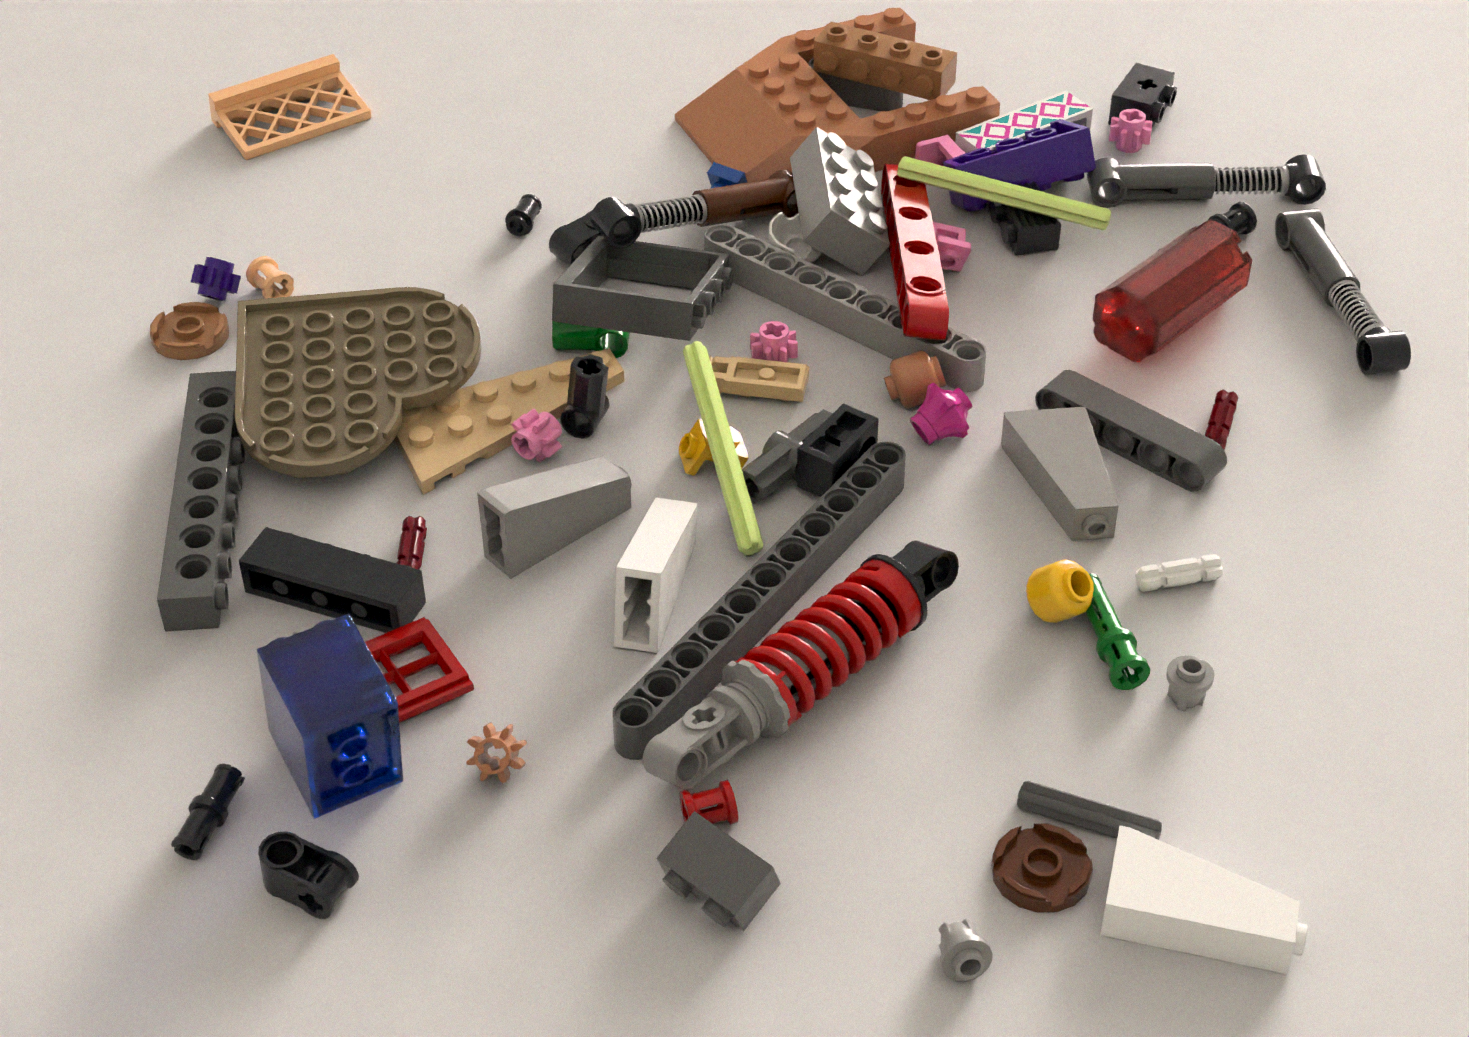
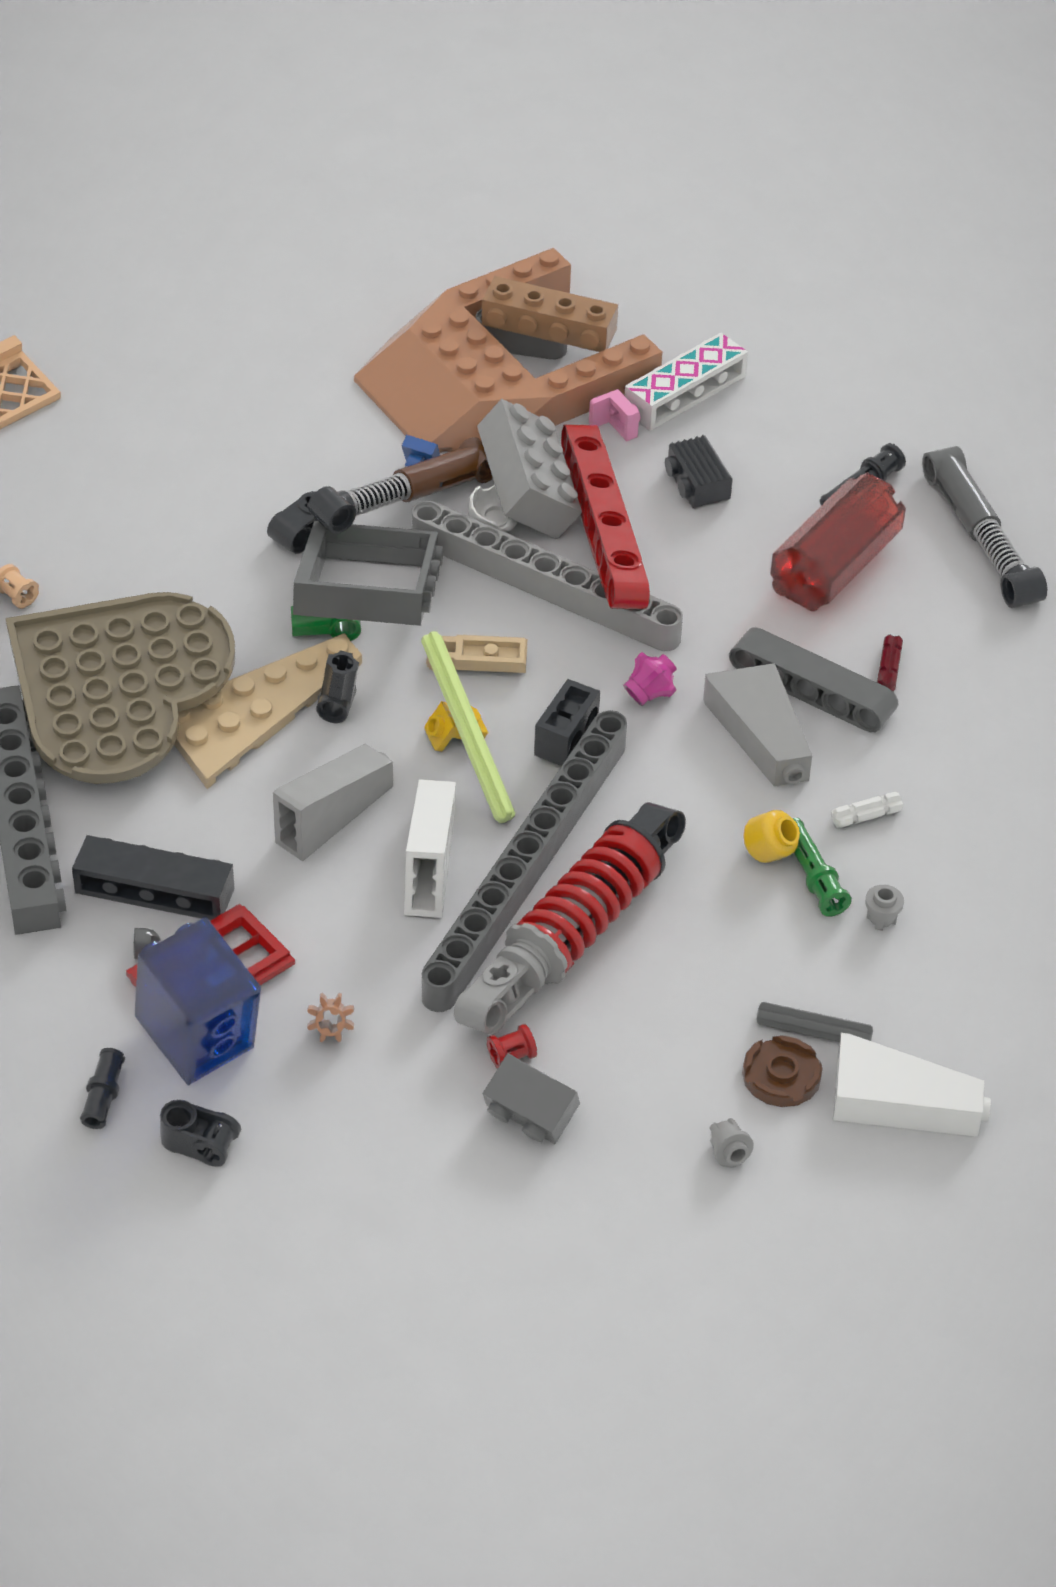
camera: 10 degrees left, 5 degrees up
(411, 542) = (211, 836): dark red axle -> none
(520, 220) = (234, 505): black pin -> none
(536, 435) = (299, 726): bright pink gear -> none
(774, 342) = (492, 618): bright pink gear -> none
(779, 458) = (518, 728): dark grey piece -> none
(912, 376) = (621, 644): nougat head -> none
(951, 246) = (637, 505): bright pink bracket -> none
(1004, 193) = (678, 452): yellowish green axle -> none
(1043, 157) = (703, 409): dark purple wedge -> none
(1130, 130) = (783, 369): bright pink gear -> none
(1145, 90) = (791, 332): brick -> none
(1297, 178) = (775, 427): piece -> none

